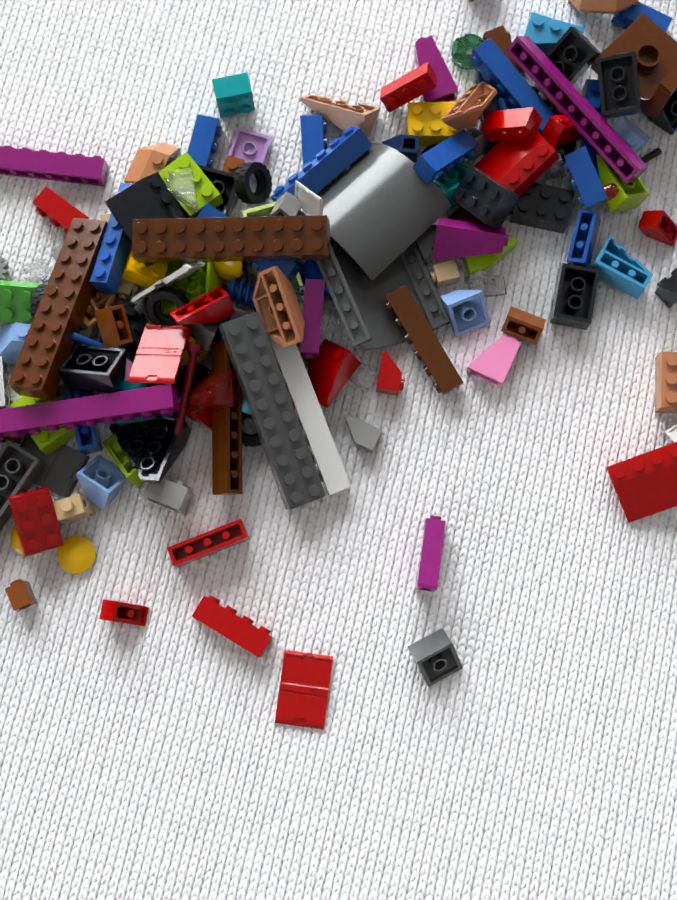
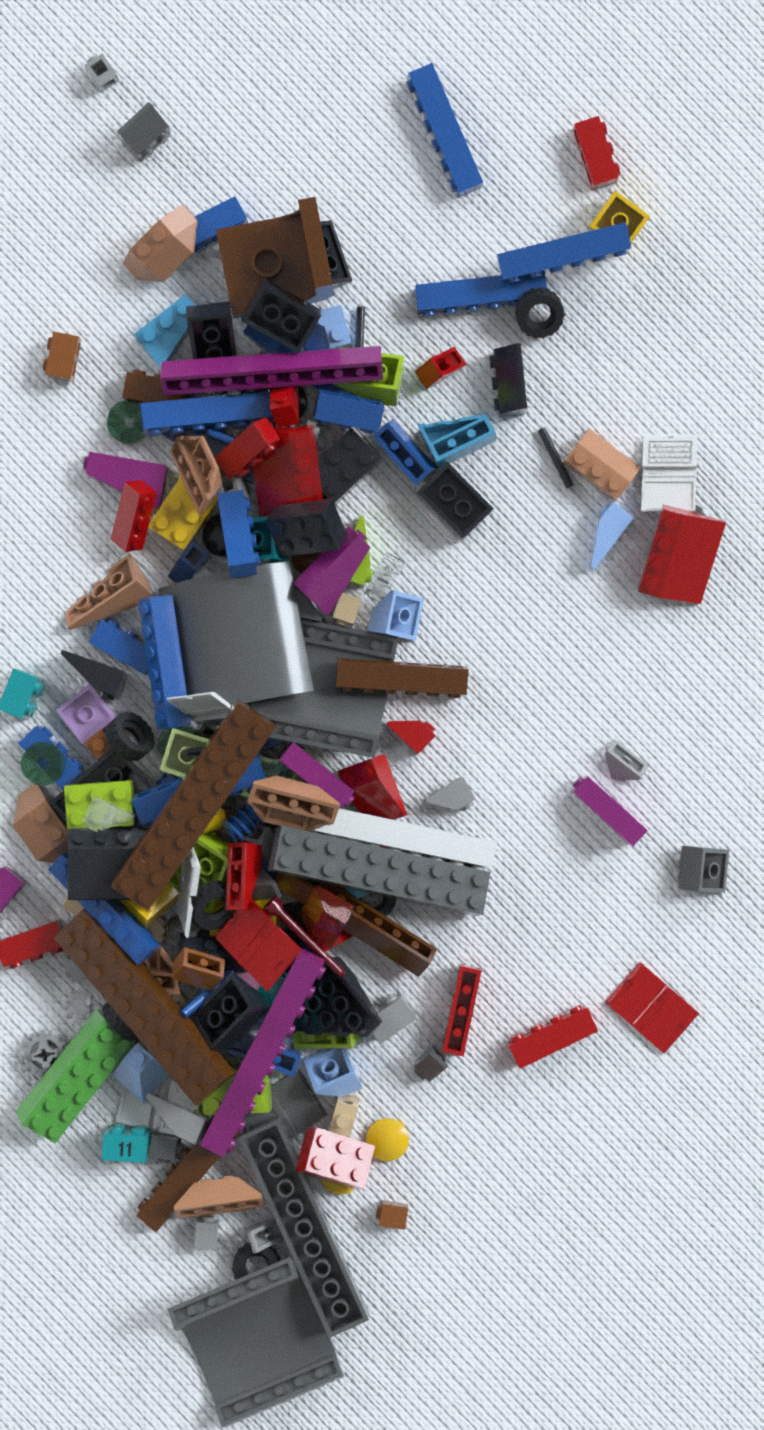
camera: 55 degrees left, 10 degrees up
(124, 612) = (473, 1129): red slope -> none
(153, 547) = (430, 1064): none -> dark grey slope
(195, 127) = (34, 772): none -> clear green plate
(282, 141) = (103, 678): none -> black slope
(286, 205) = (188, 727): light grey brick -> none
(472, 543) = (624, 763): none -> light grey slope
(495, 361) = (466, 619): bright pink slope -> none
(523, 325) = (450, 570): dark orange brick -> none
(609, 190) = (378, 399): clear red hinge -> none
(636, 419) = (609, 529): none -> light blue slope
(655, 349) = (555, 458): none -> black bar

